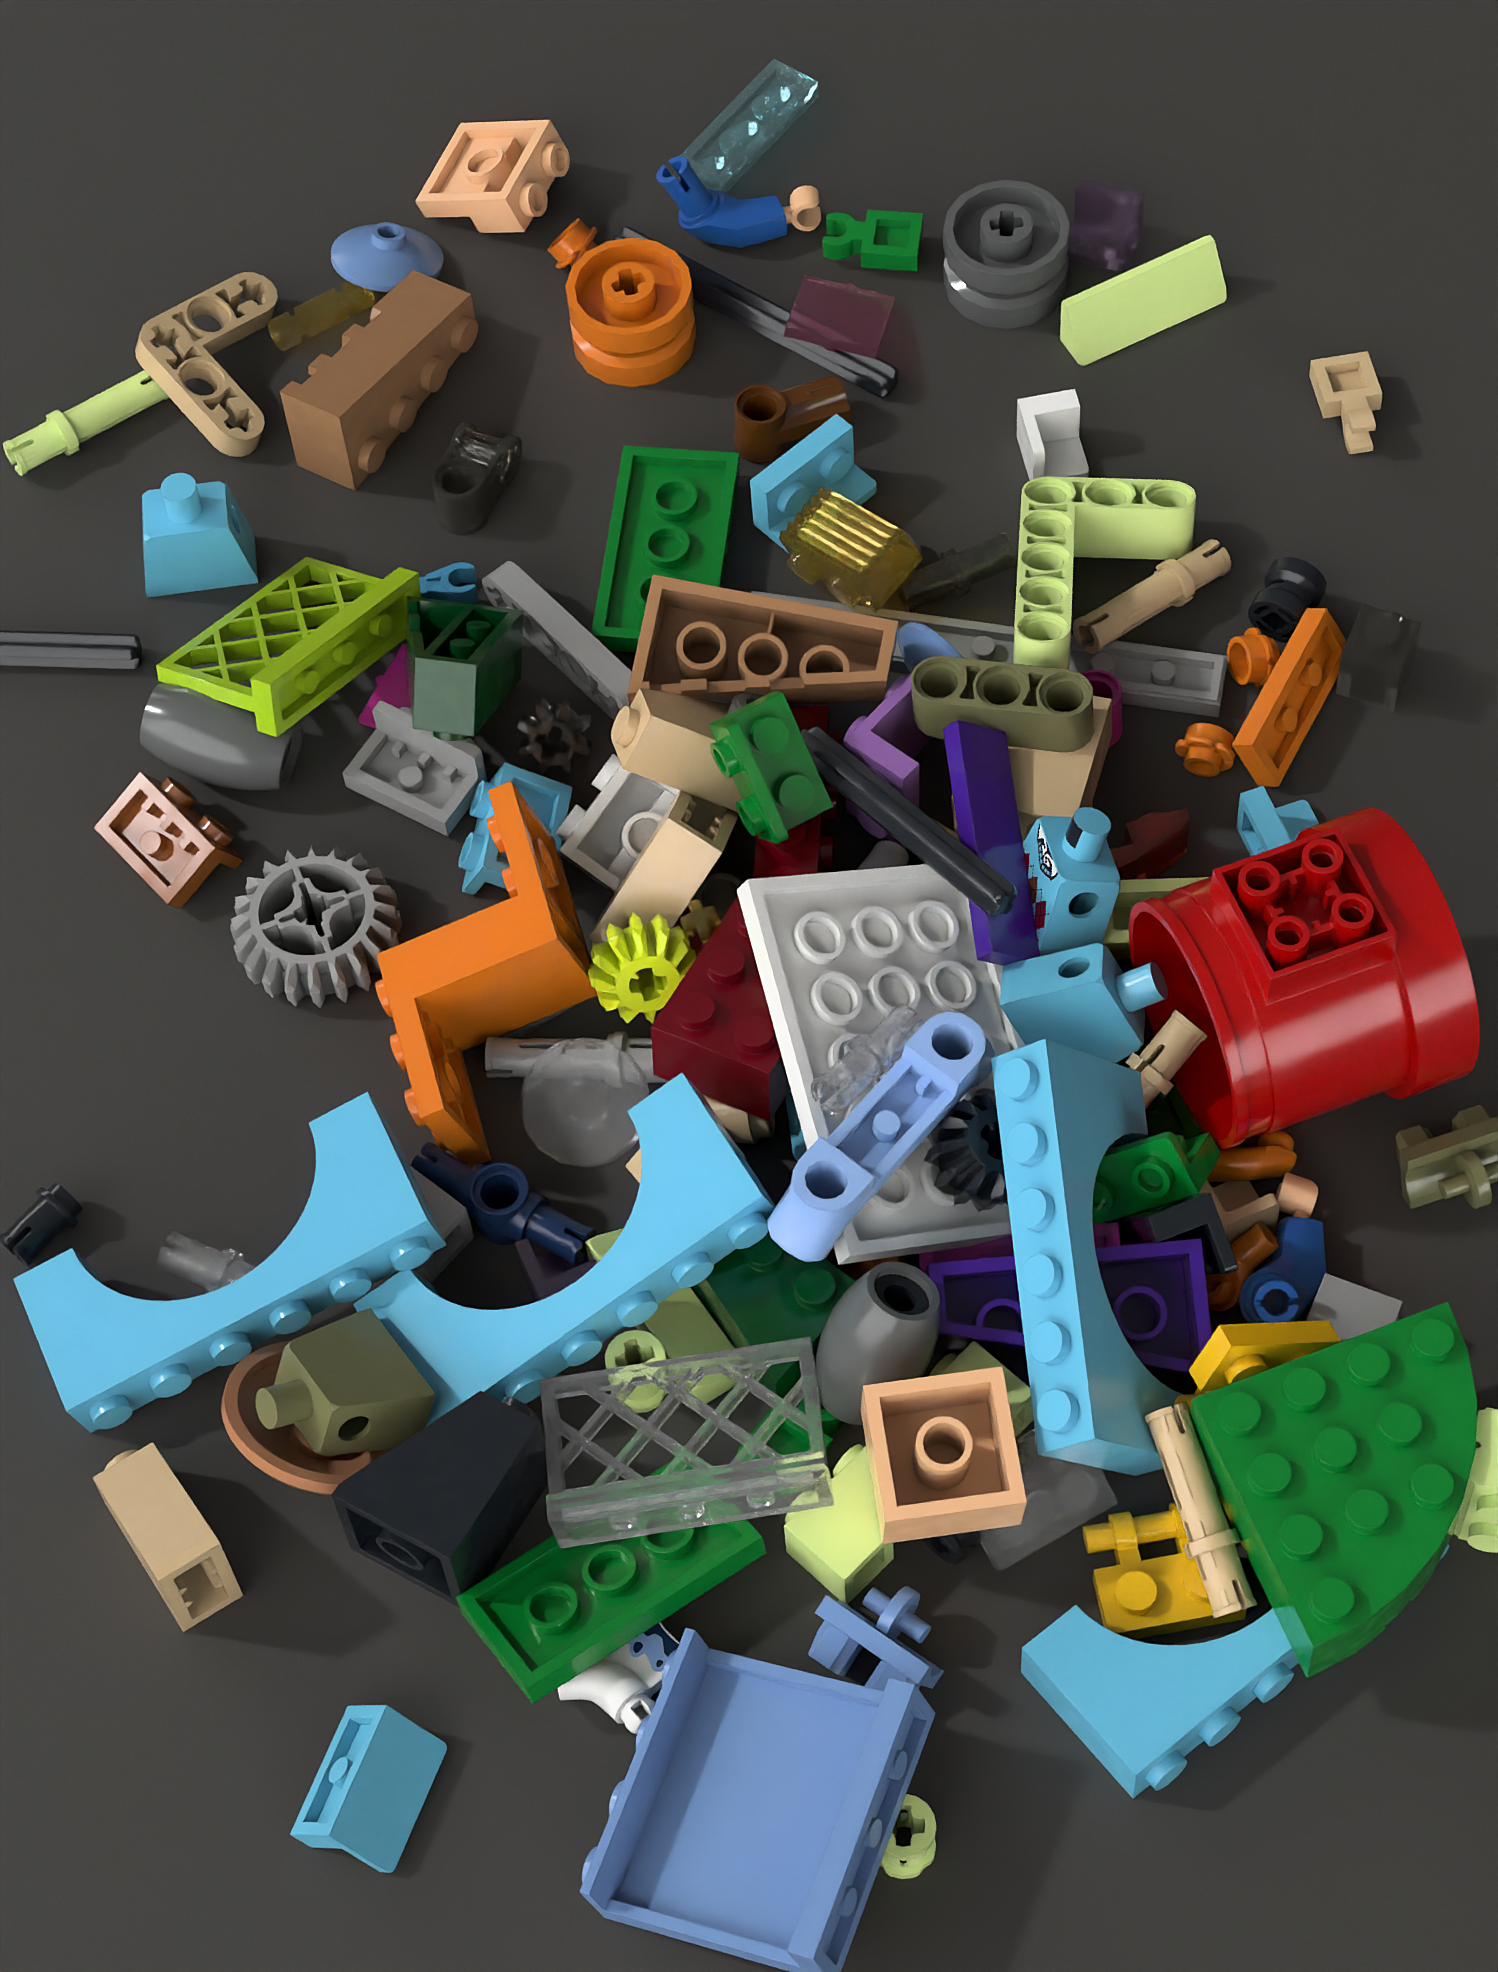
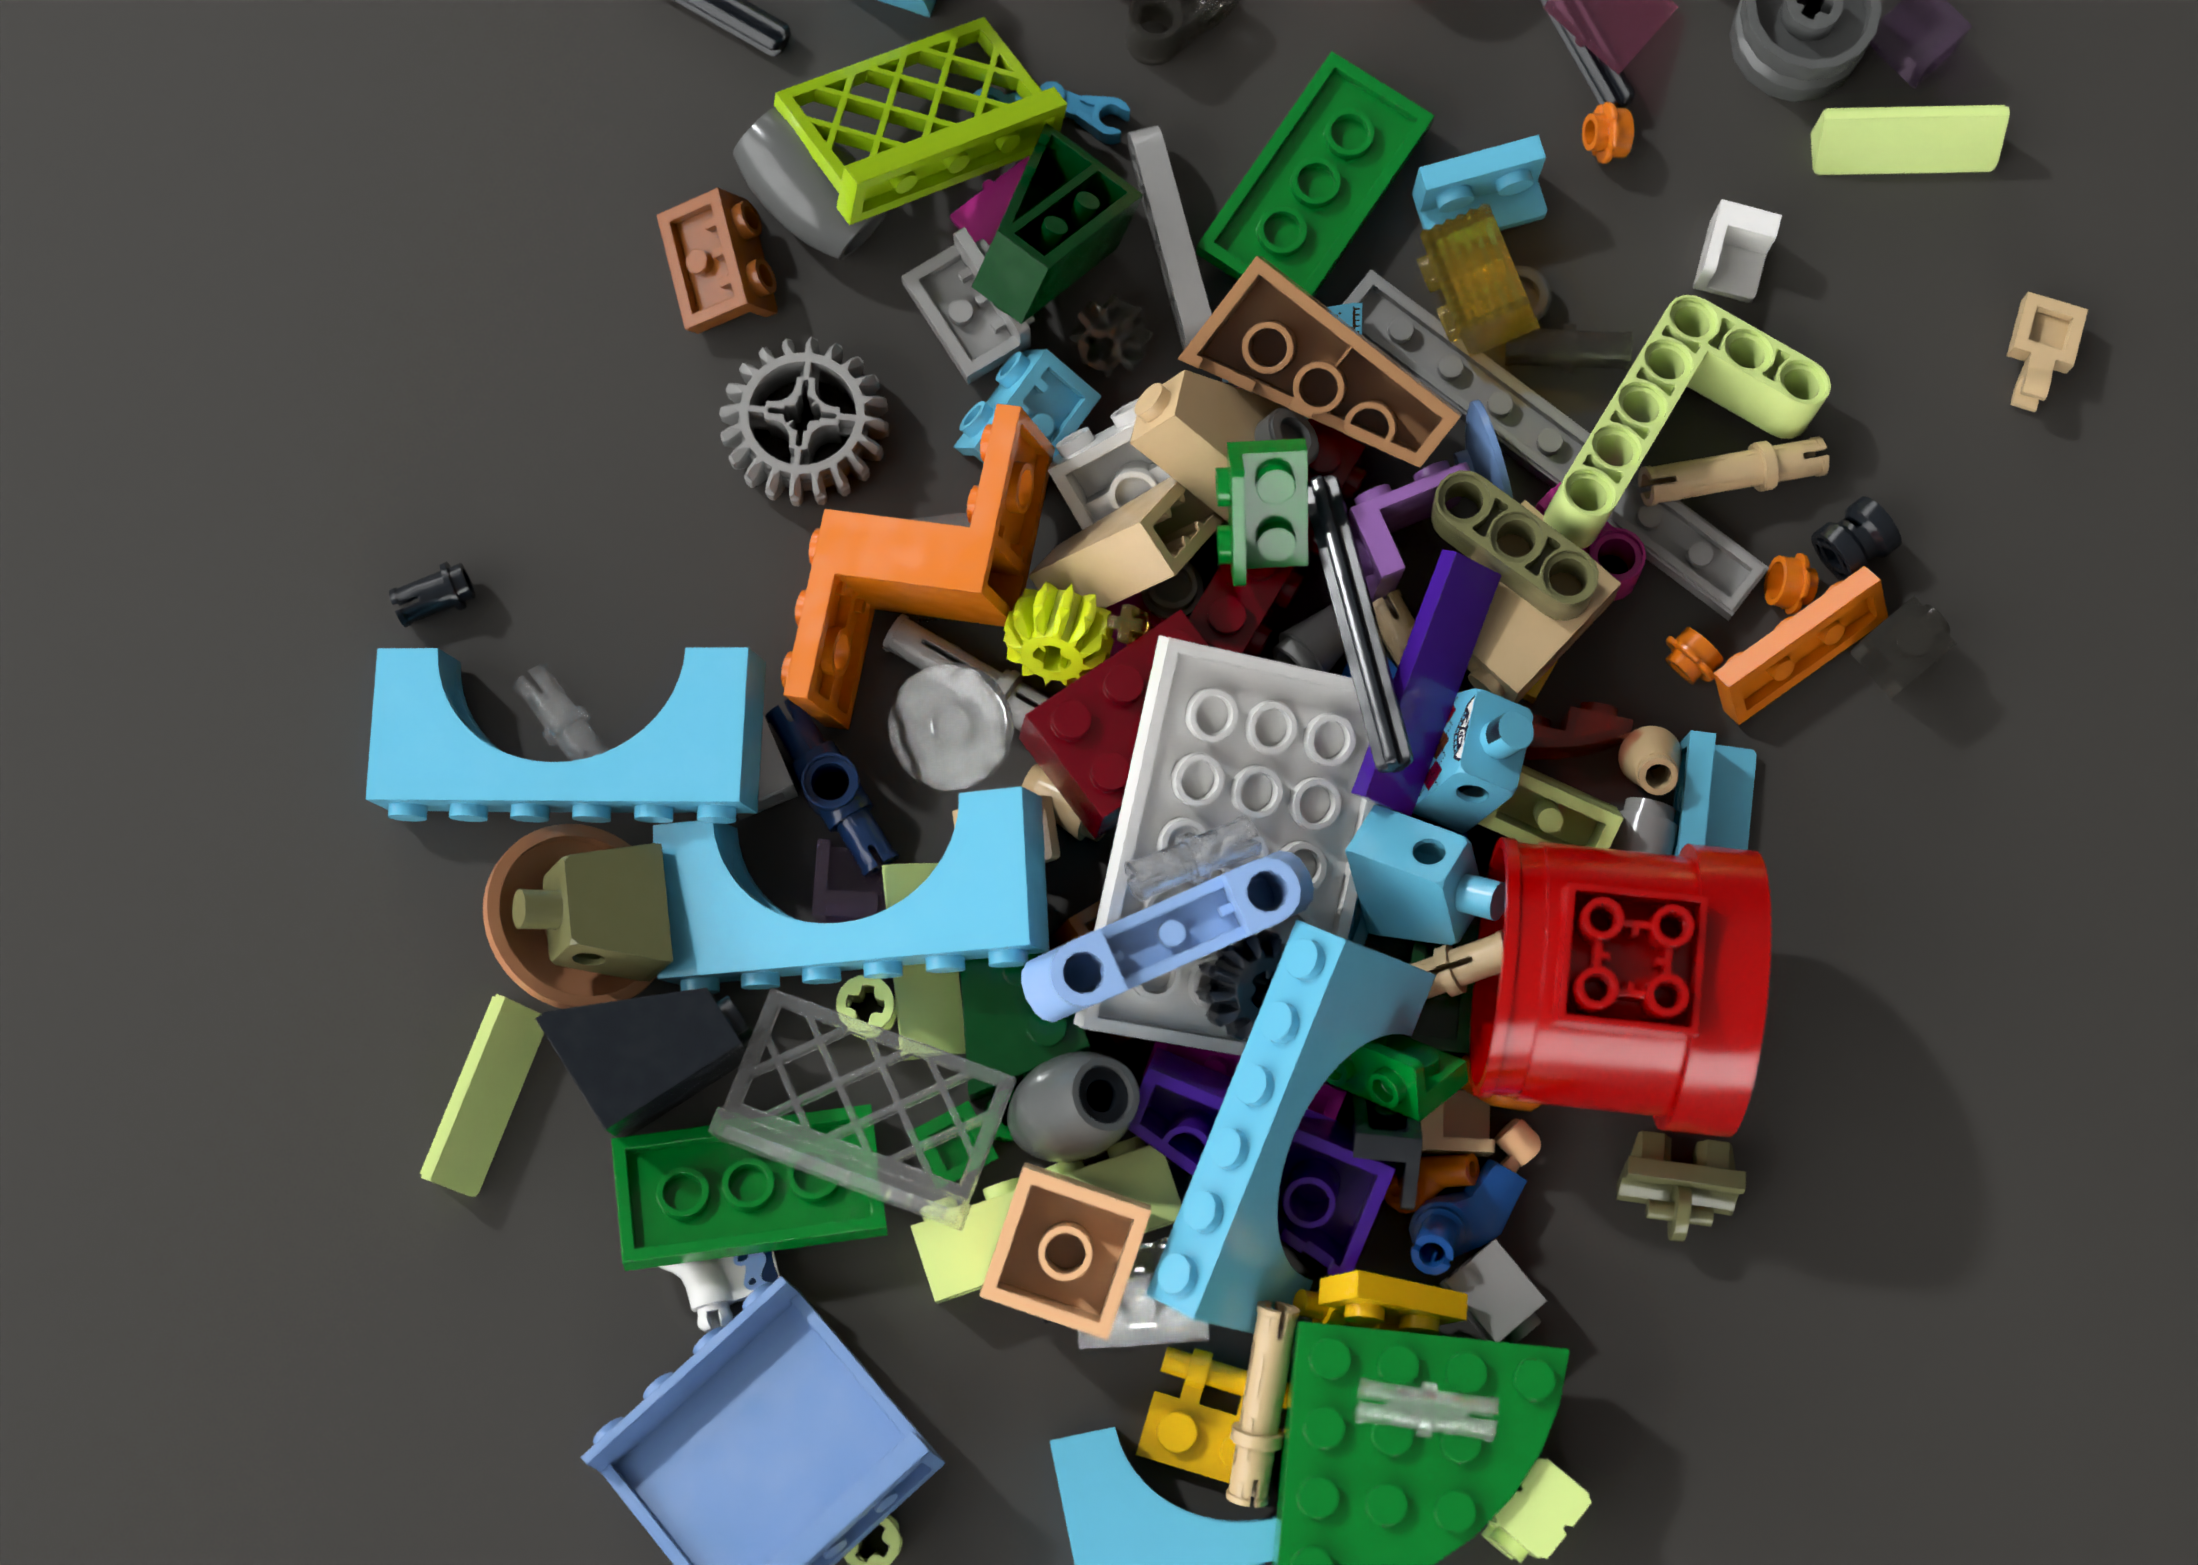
camera: 20 degrees right, 20 degrees up
(168, 1535) = (399, 951): tan slope -> none
(312, 1628) = (484, 1097): none -> yellowish green slope
(370, 1786) = (464, 1262): medium azure panel -> none
(771, 417) = (1510, 95): reddish brown piece -> none
(848, 1631) = (946, 1359): medium blue hips -> none
(893, 404) = (1608, 132): none -> orange plate
(1208, 843) = (1647, 748): none -> tan cone
(1352, 1402) = (1426, 1409): none -> clear pin

